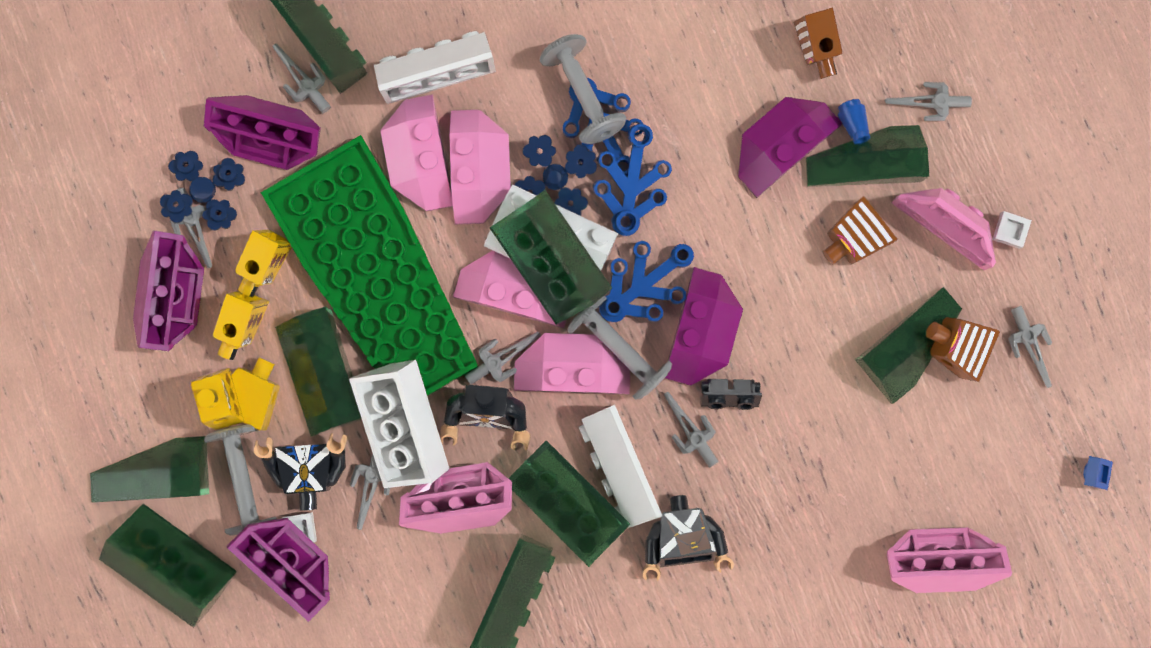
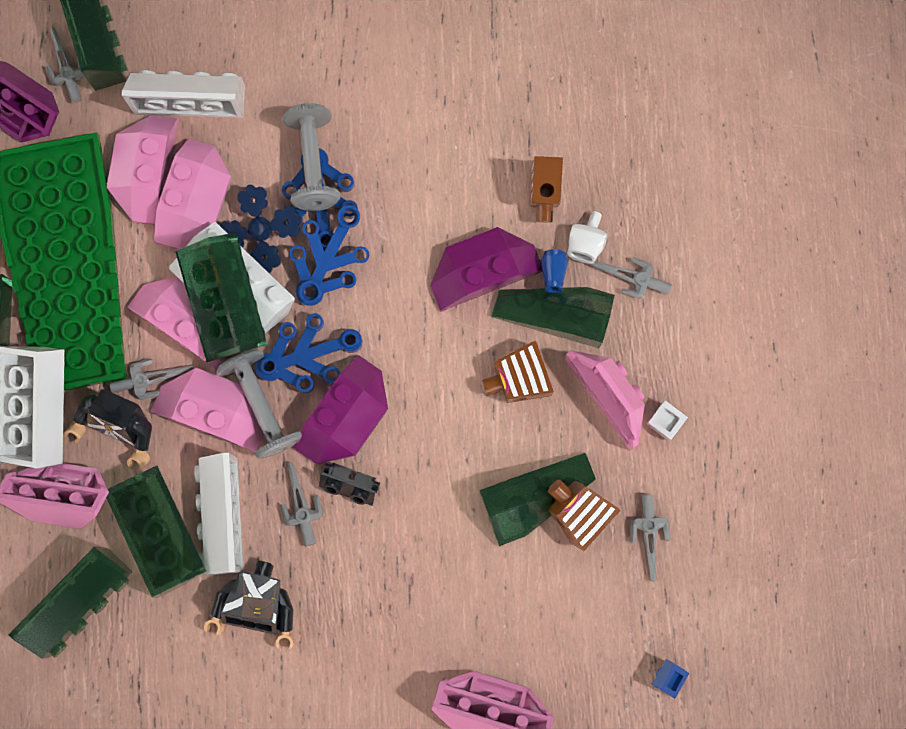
camera: 20 degrees right, 5 degrees down
(875, 81) = (587, 240): none -> white piece

